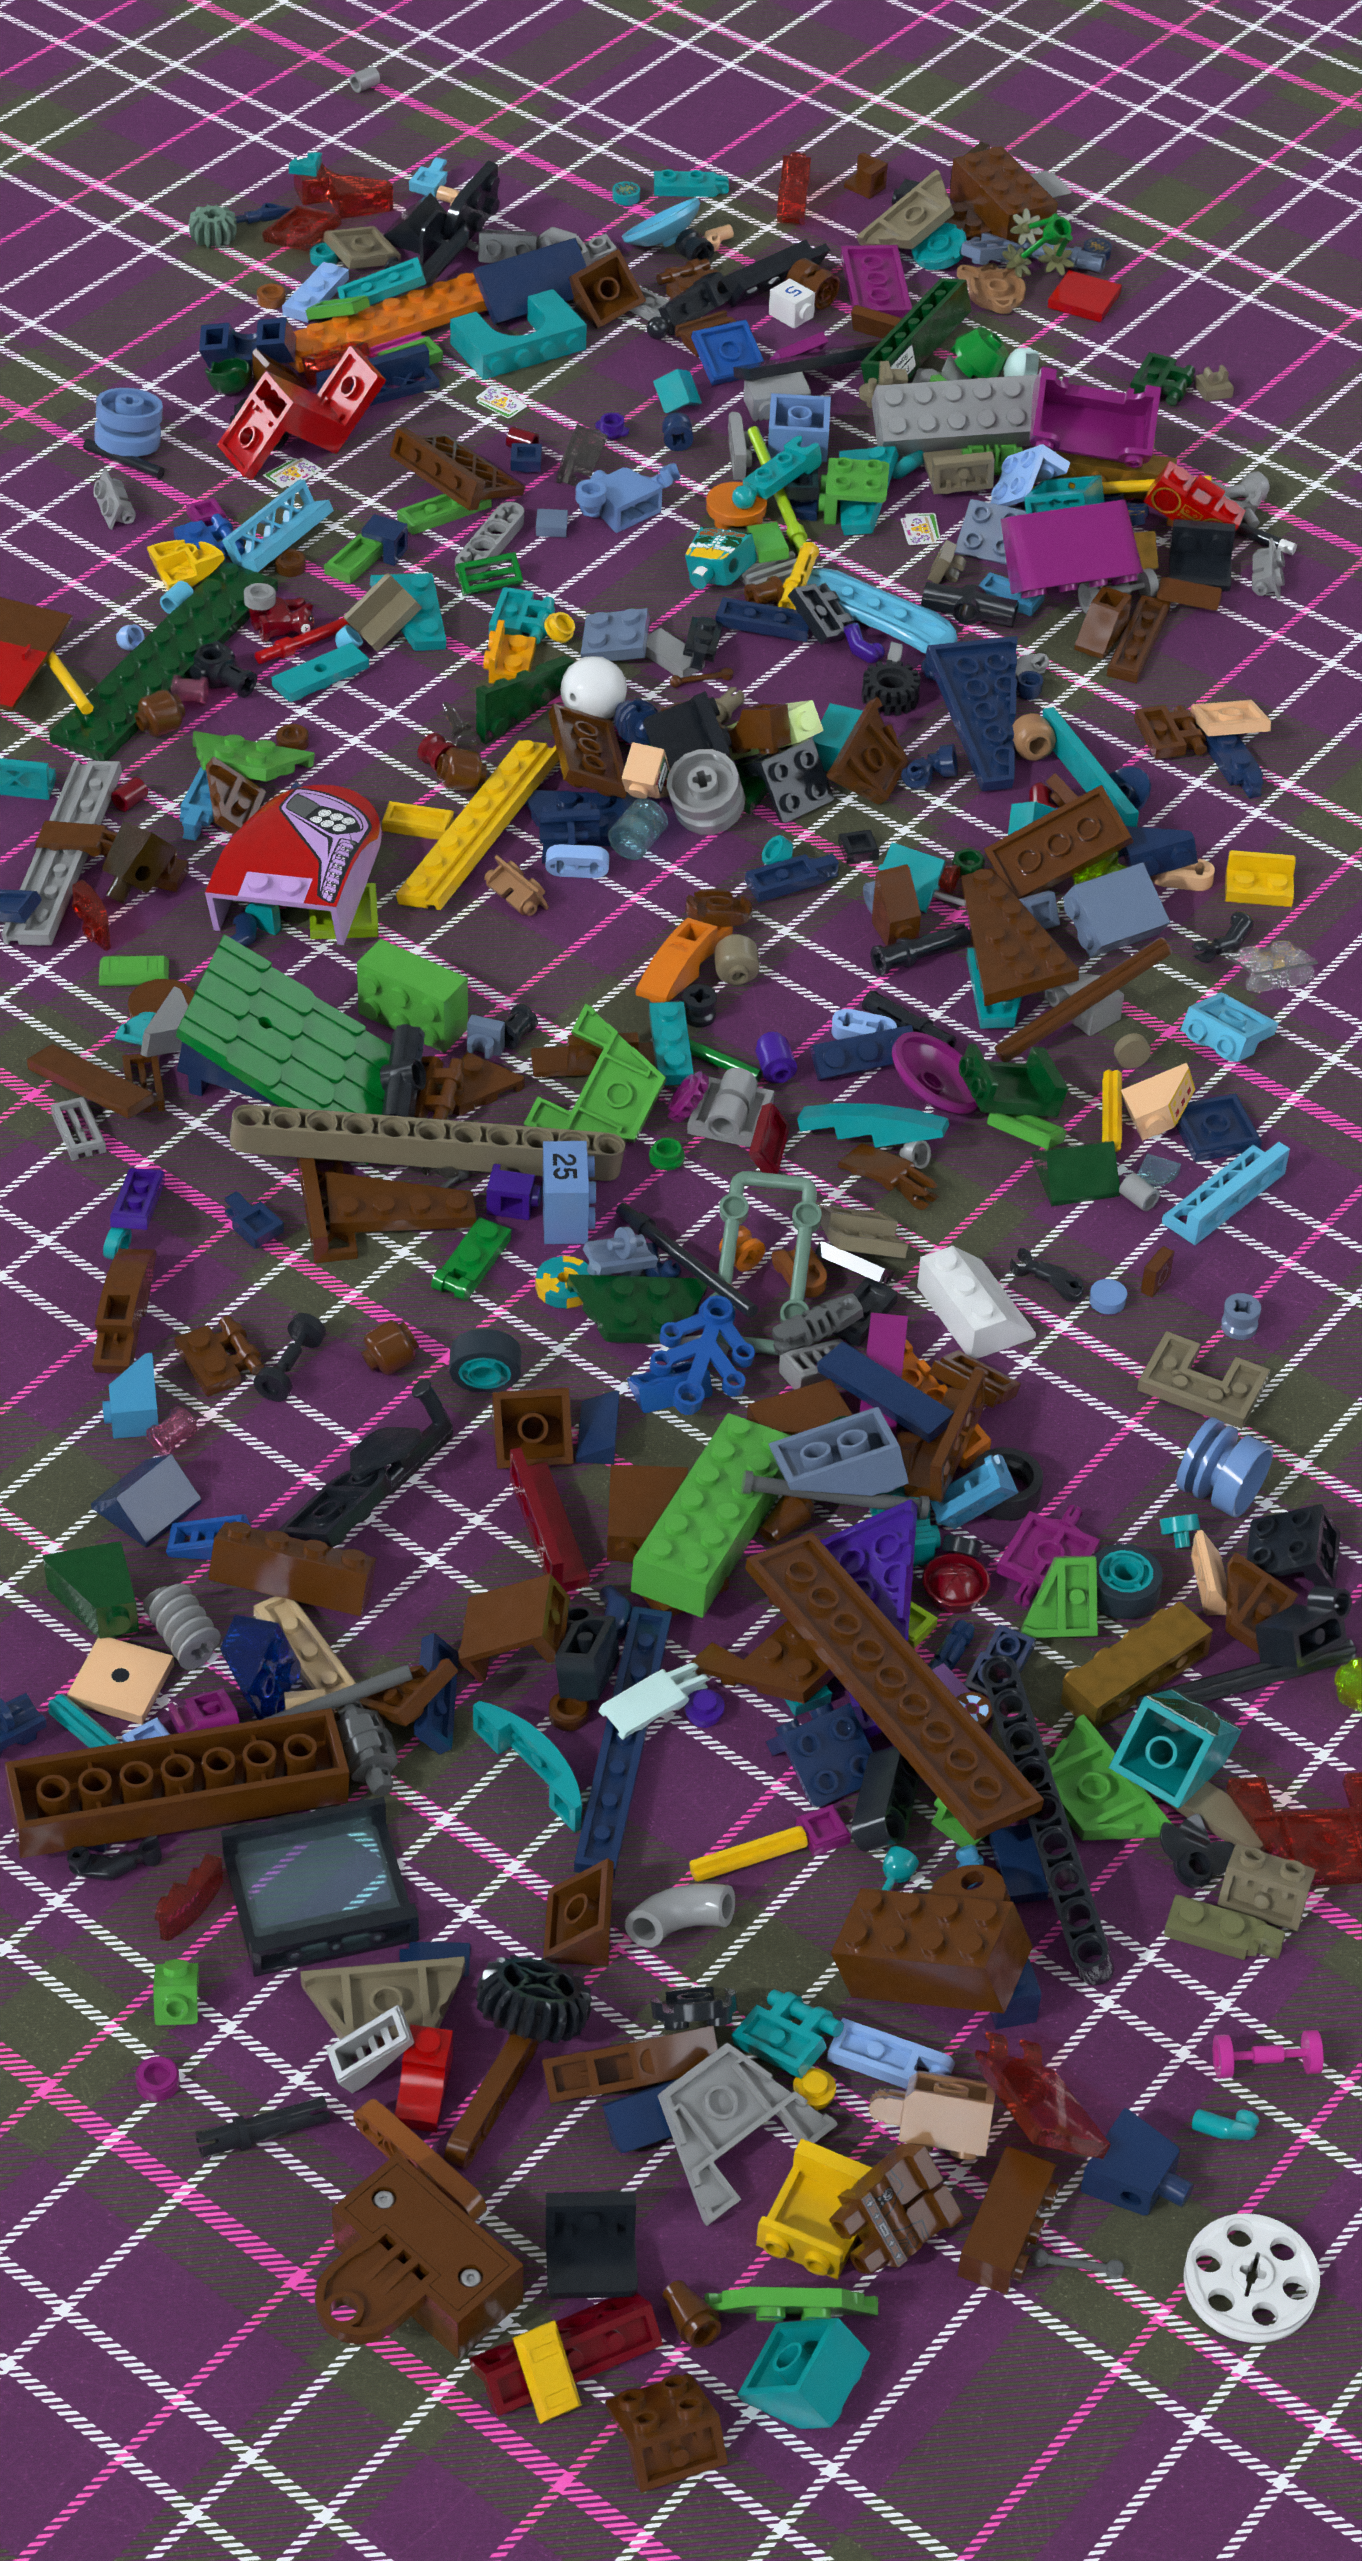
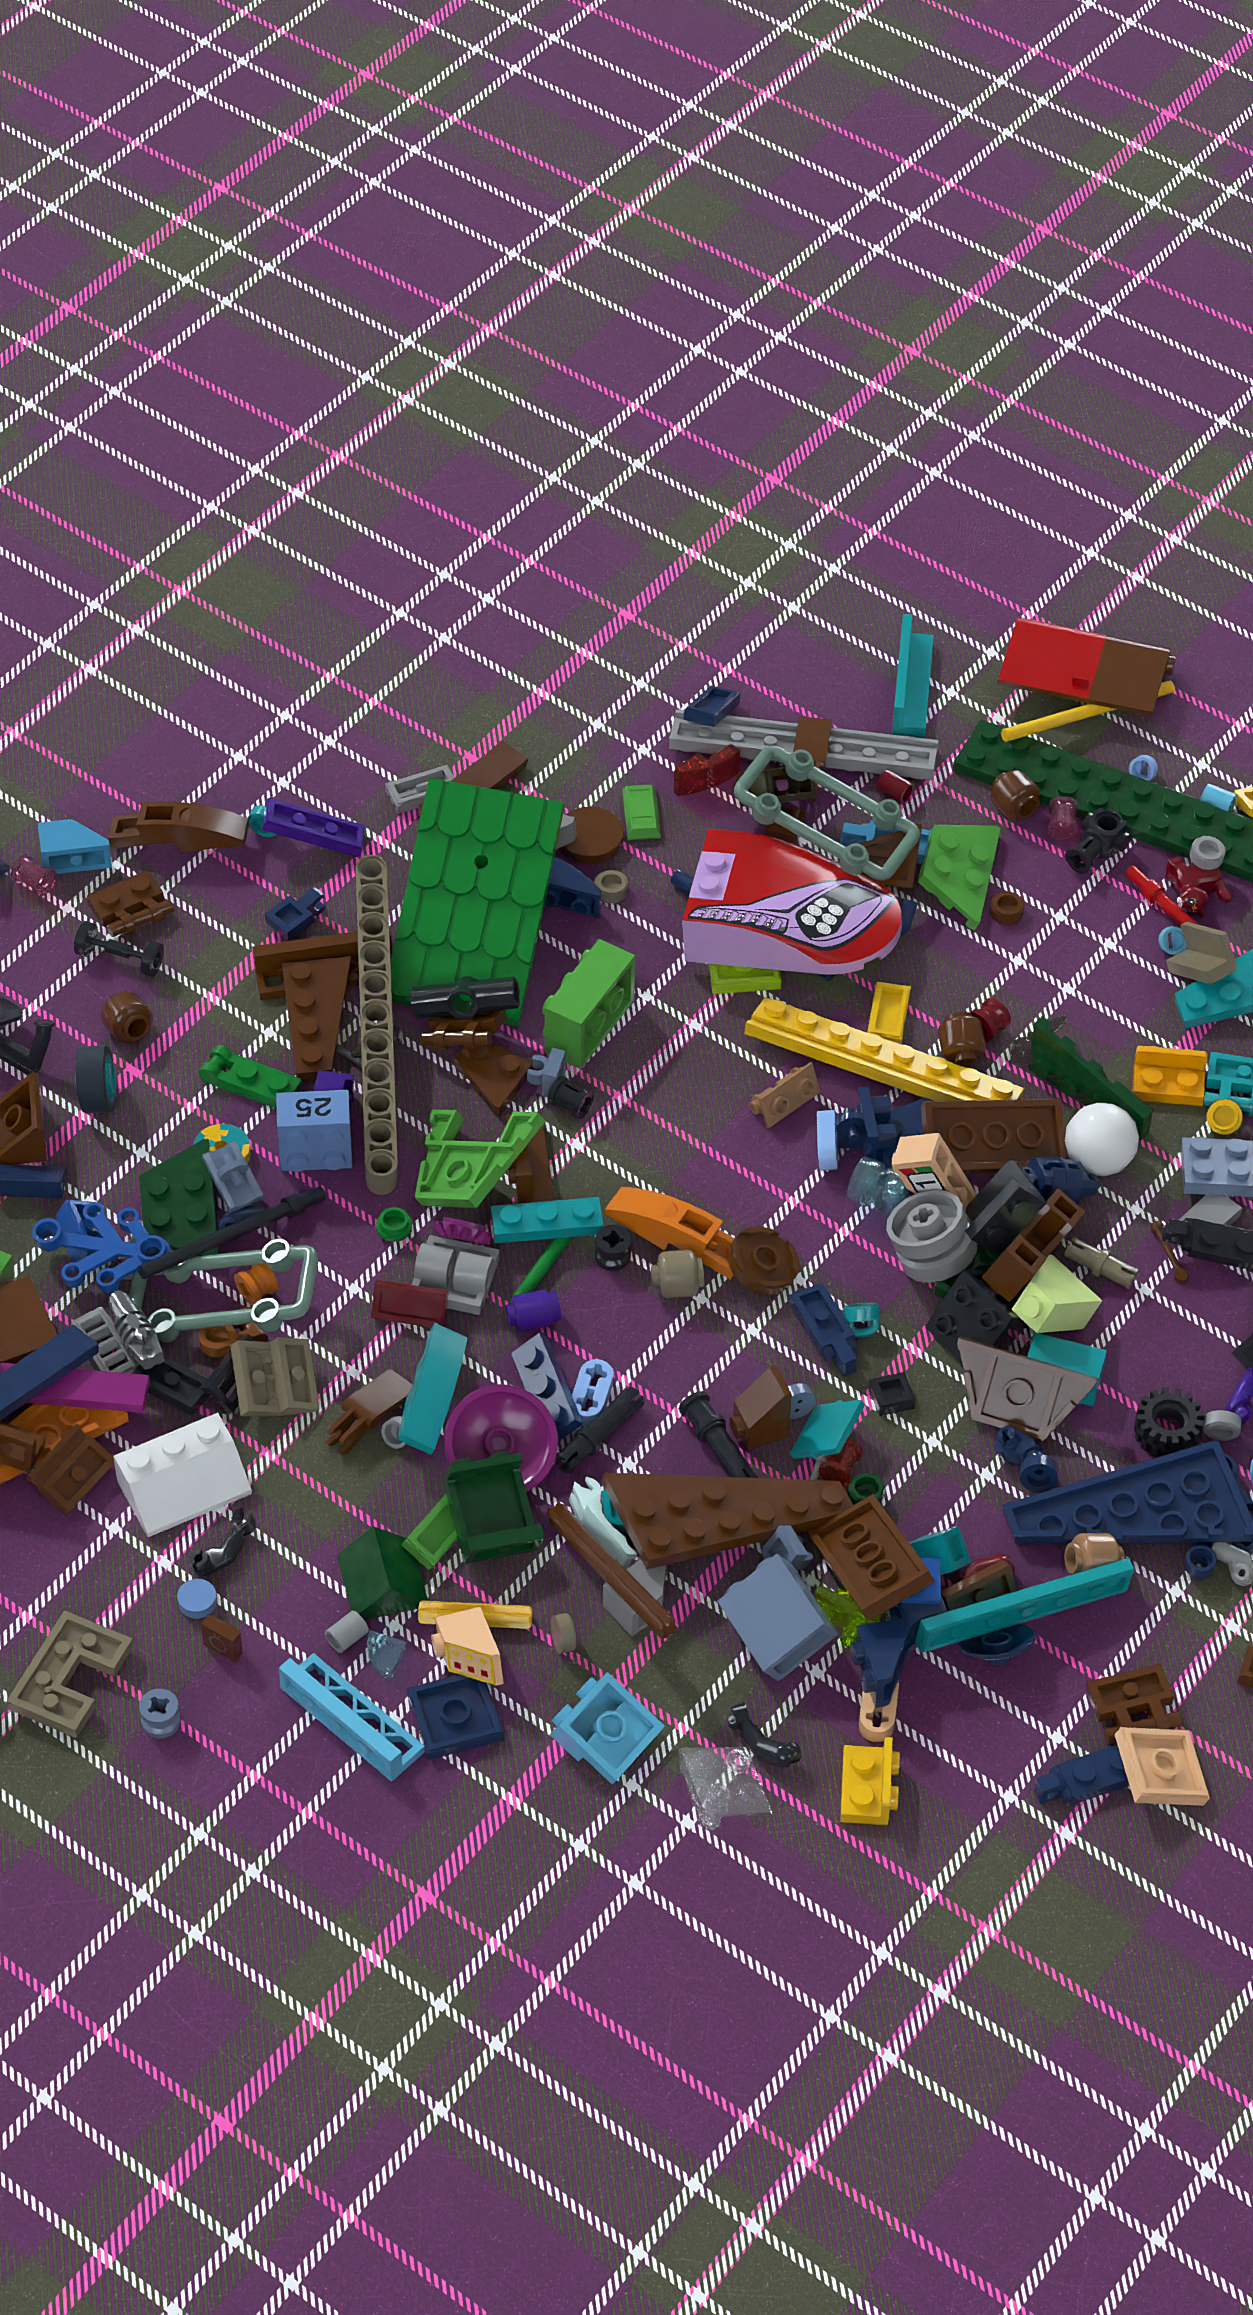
camera: 90 degrees right, 5 degrees up
(200, 835) = (853, 858): none -> sand green bar
(320, 672) = (1111, 919): teal tile -> none
(996, 1030) = (589, 1512): none -> light aqua arm

